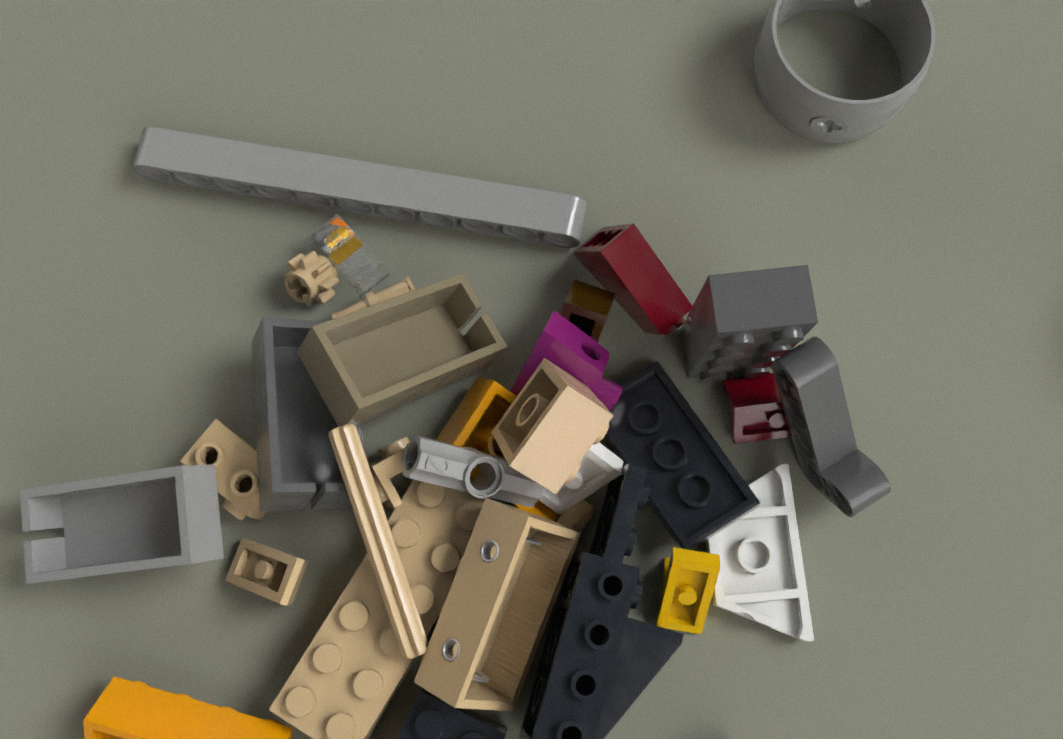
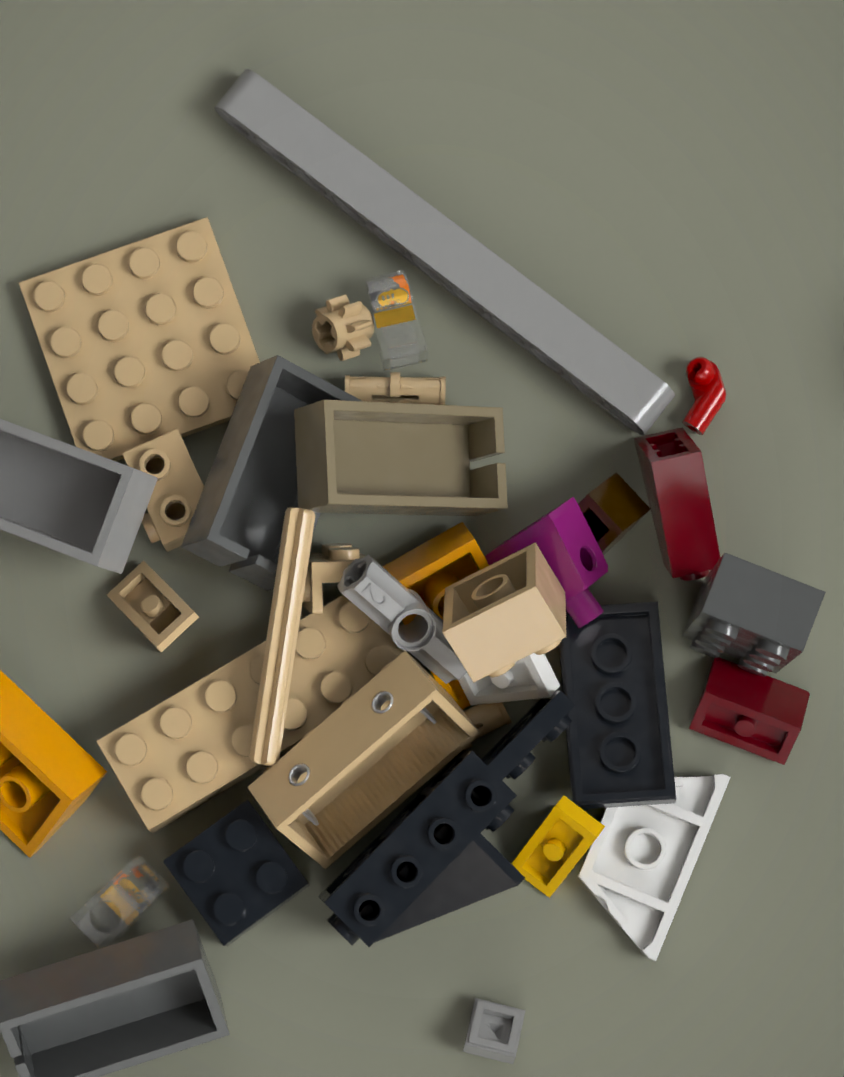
camera: 25 degrees right, 5 degrees up
(158, 367) = (143, 340): none -> tan plate
(609, 192) = (707, 391): none -> red arm
(823, 429) = (779, 761): dark grey beam -> none

